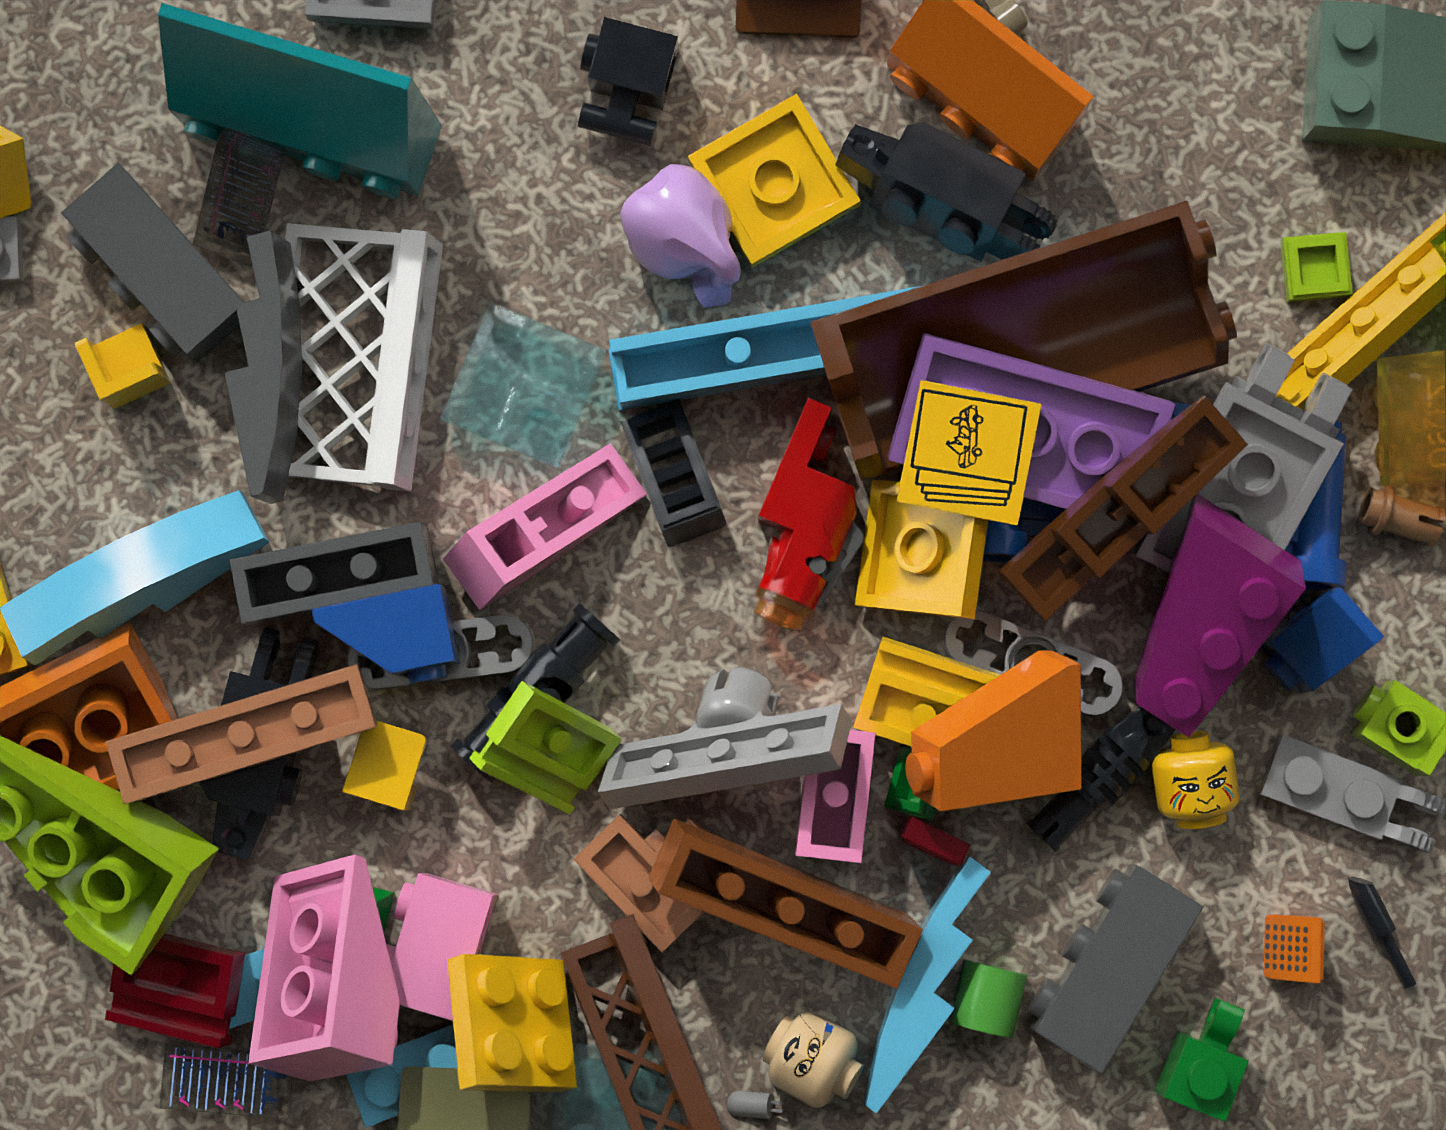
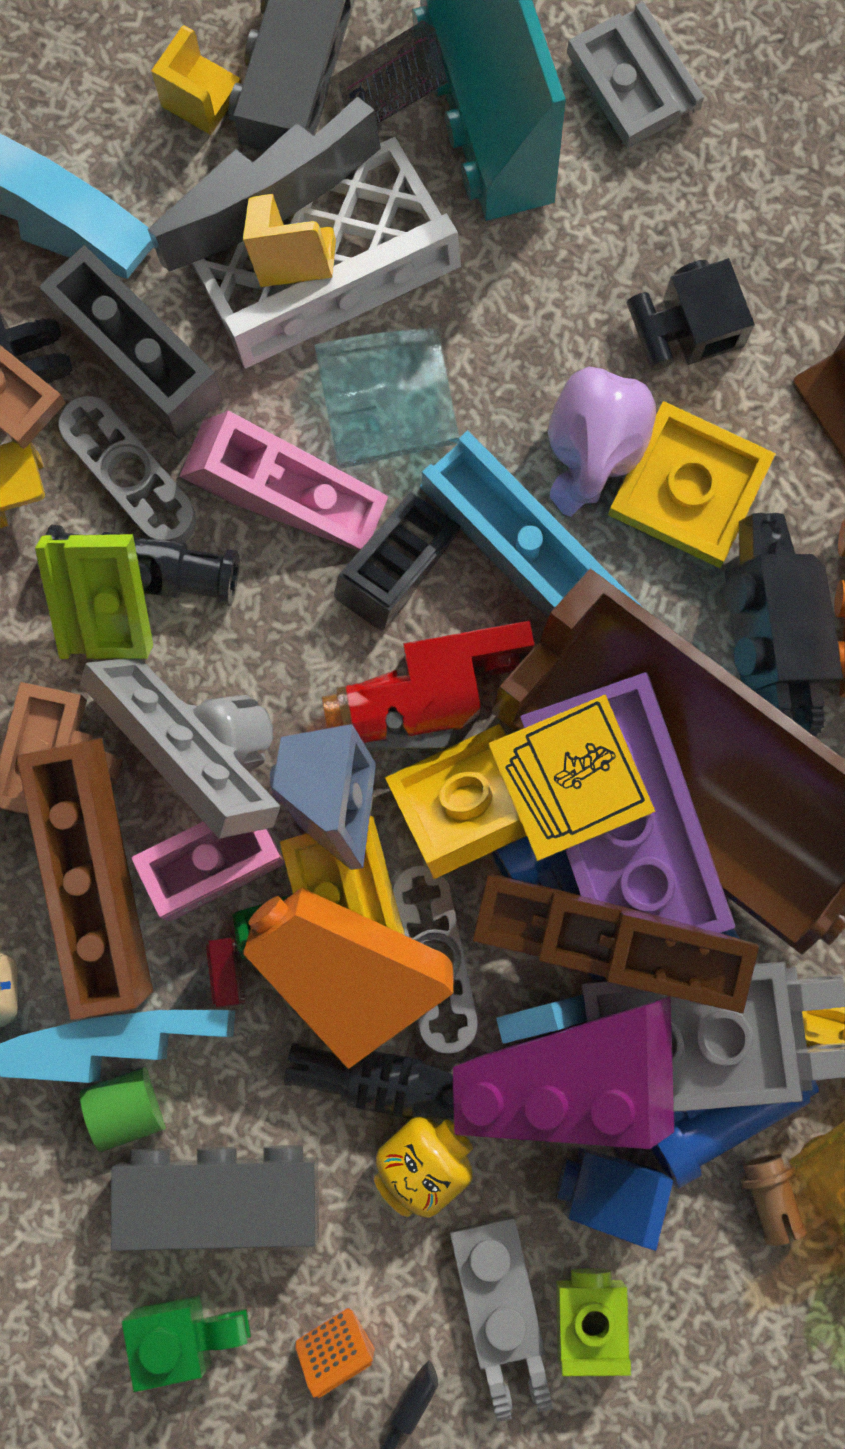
camera: 55 degrees right, 5 degrees down
(347, 386) = (289, 251): none -> yellow panel
(398, 631) = (115, 418): blue slope -> none
(840, 658) = (327, 788): none -> sand blue slope
(1141, 606) = (542, 1019): none -> medium azure tile

